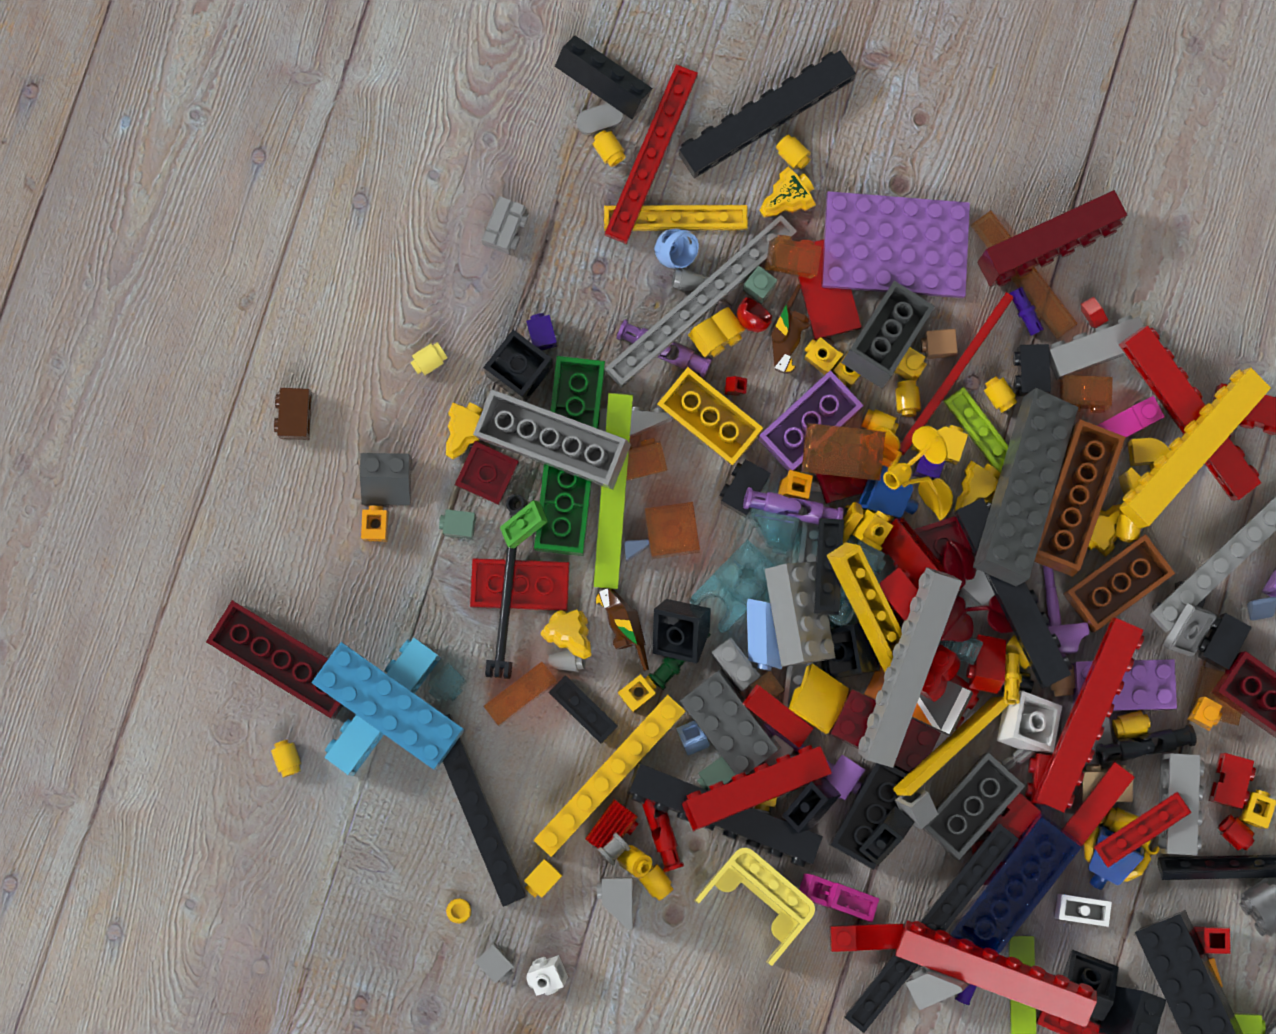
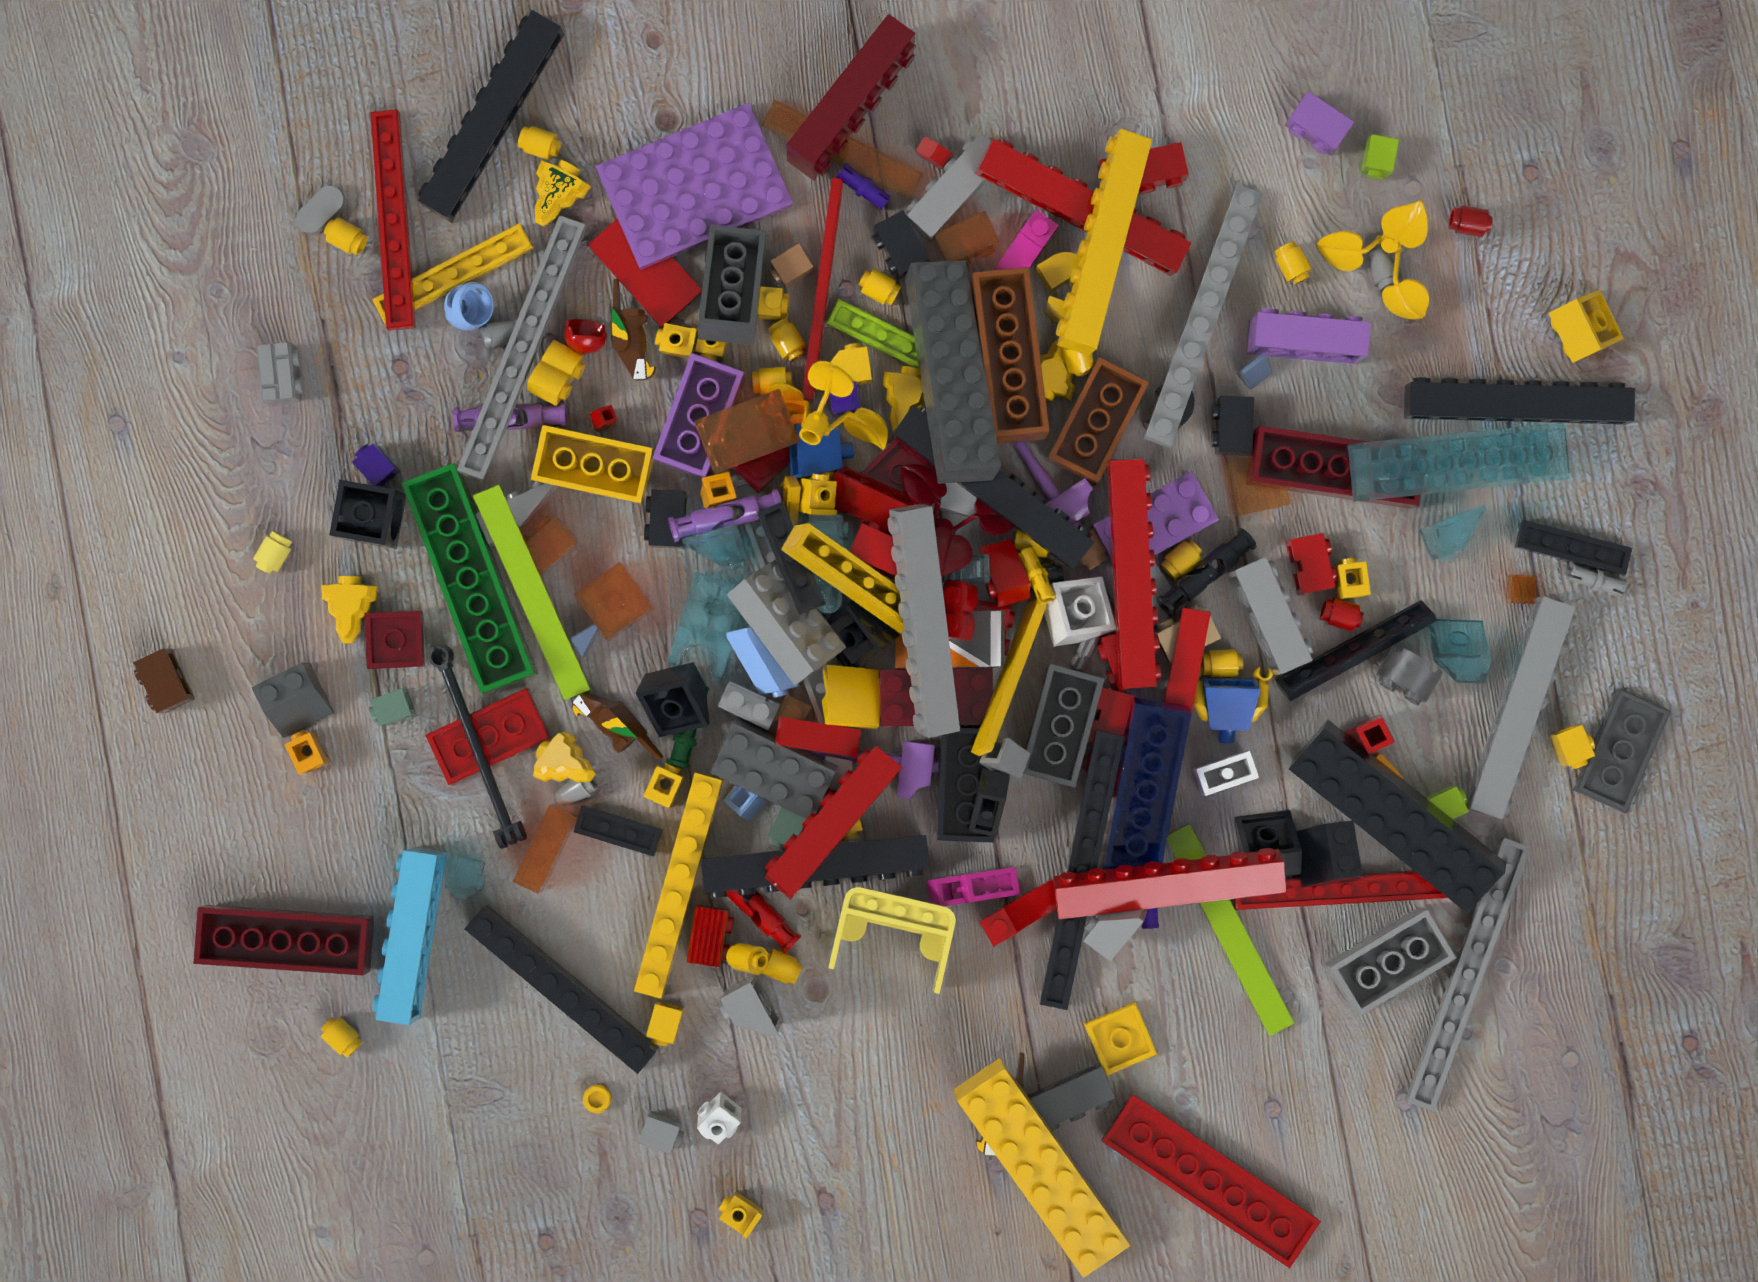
camera: 25 degrees left, 5 degrees up
(388, 706) = (411, 935): dark azure brick -> none
(523, 524) = (457, 675): bright green plate -> none
(552, 439) = (439, 573): light grey brick -> none
(603, 77) = (300, 164): black brick -> none
(614, 849) = (720, 958): light grey bush -> none
(760, 284) = (575, 300): sand green brick -> none
(793, 257) = (593, 253): clear orange brick -> none
(811, 805) = (897, 810): black brick -> none
(1142, 829) = (1244, 662): red tile -> none
(1190, 630) = (1193, 432): light grey tile -> none
(1205, 713) = (1251, 509): light orange brick -> none

